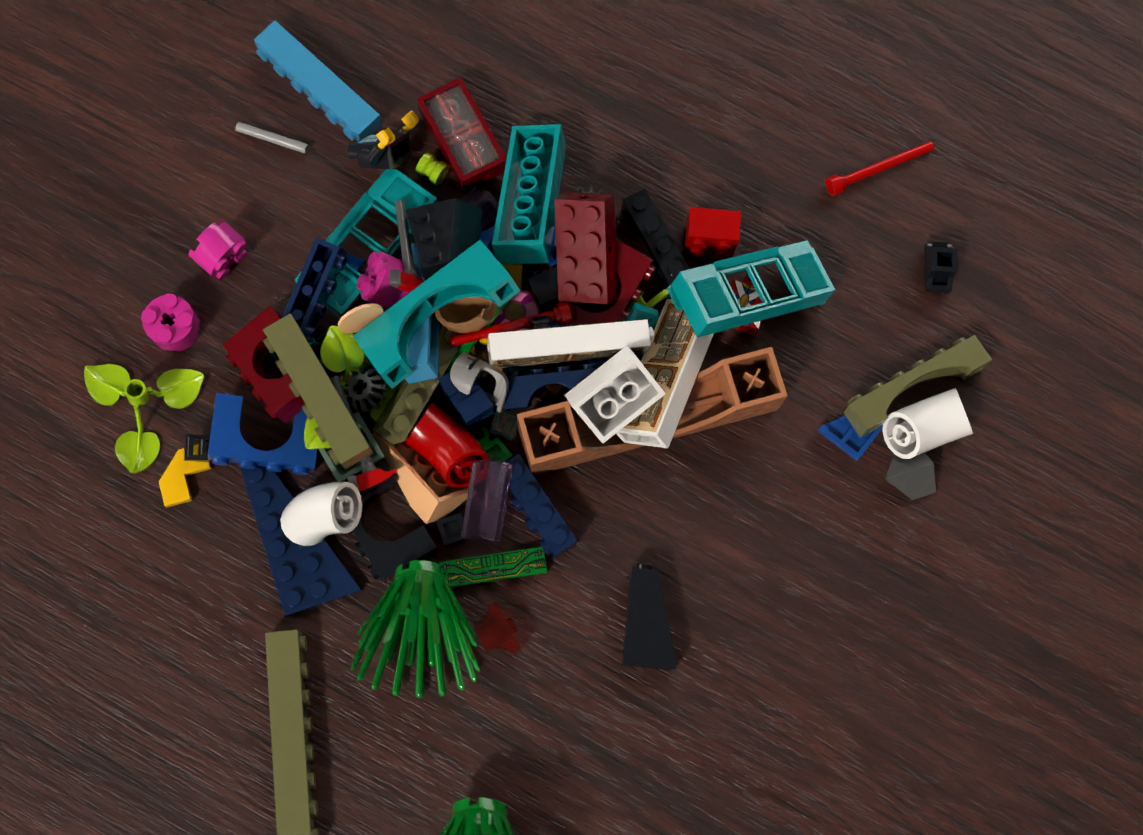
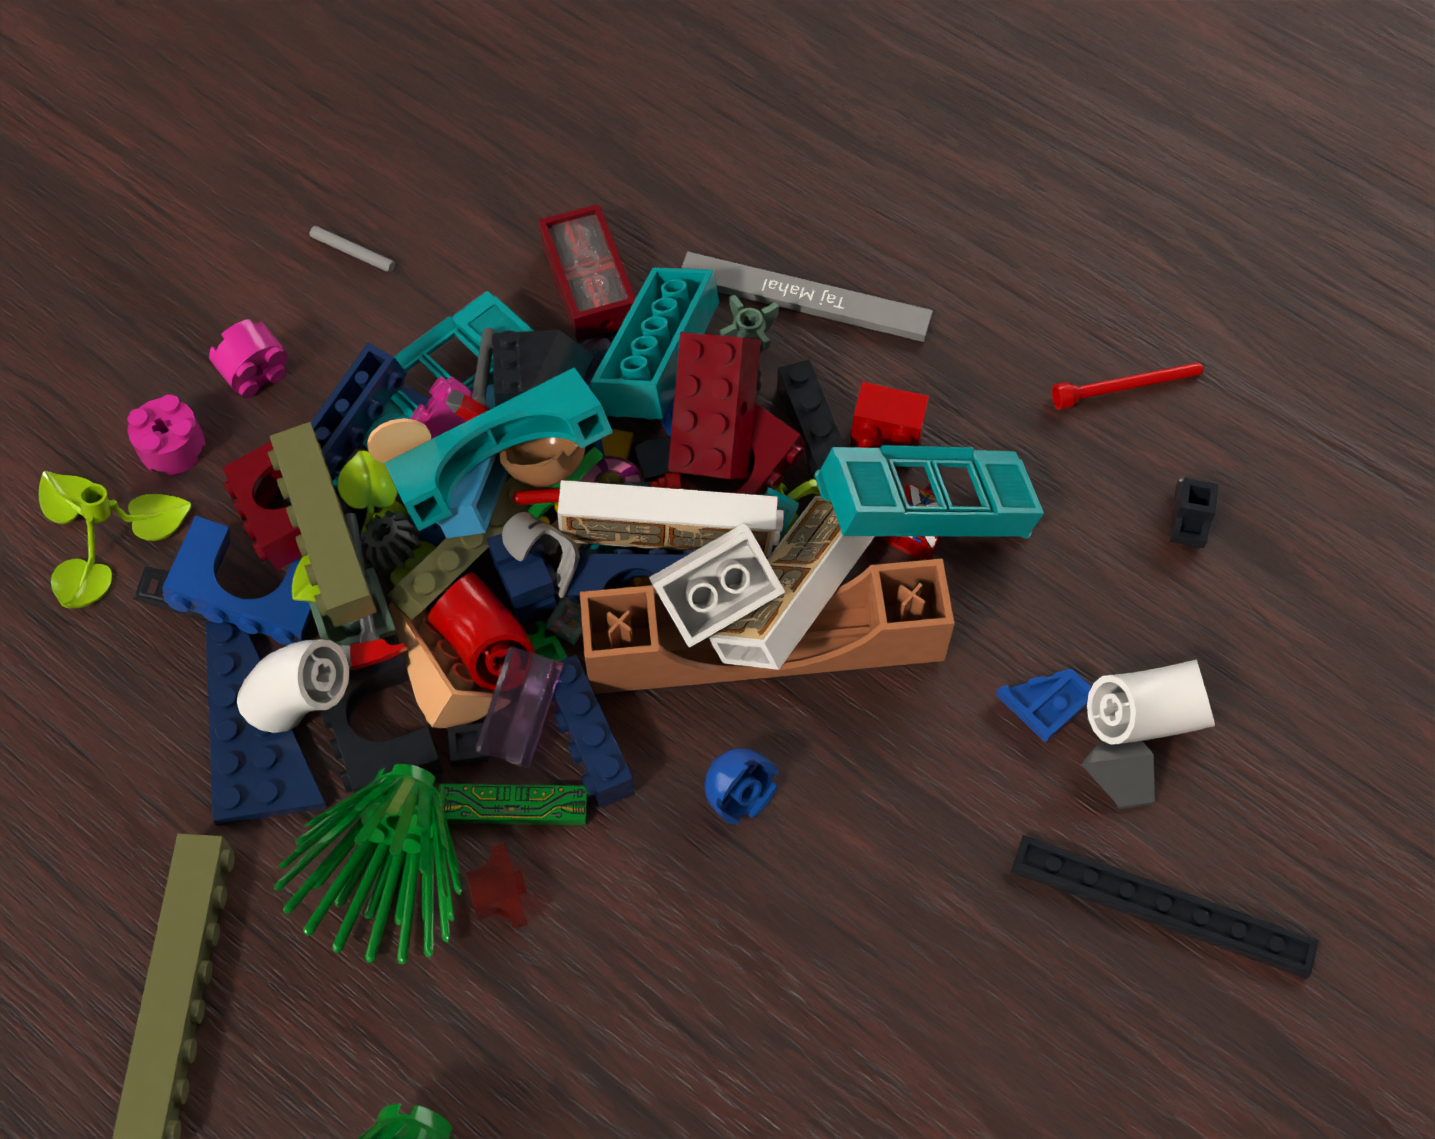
camera: 15 degrees right, 15 degrees down
(174, 481) = (116, 628): yellow tile -> none
(317, 82) = (424, 196): dark azure brick -> none
(385, 148) = (485, 273): black torso -> none
(432, 168) = (546, 310): lime wheel -> none
(594, 166) = (750, 322): none -> sand green brick
(632, 127) = (815, 298): none -> light grey tile
(646, 624) = (709, 916): black slope -> none
(649, 528) = (740, 784): none -> blue cylinder
(949, 566) = (1165, 907): none -> black tile
(963, 359) = (1209, 630): olive arch -> none

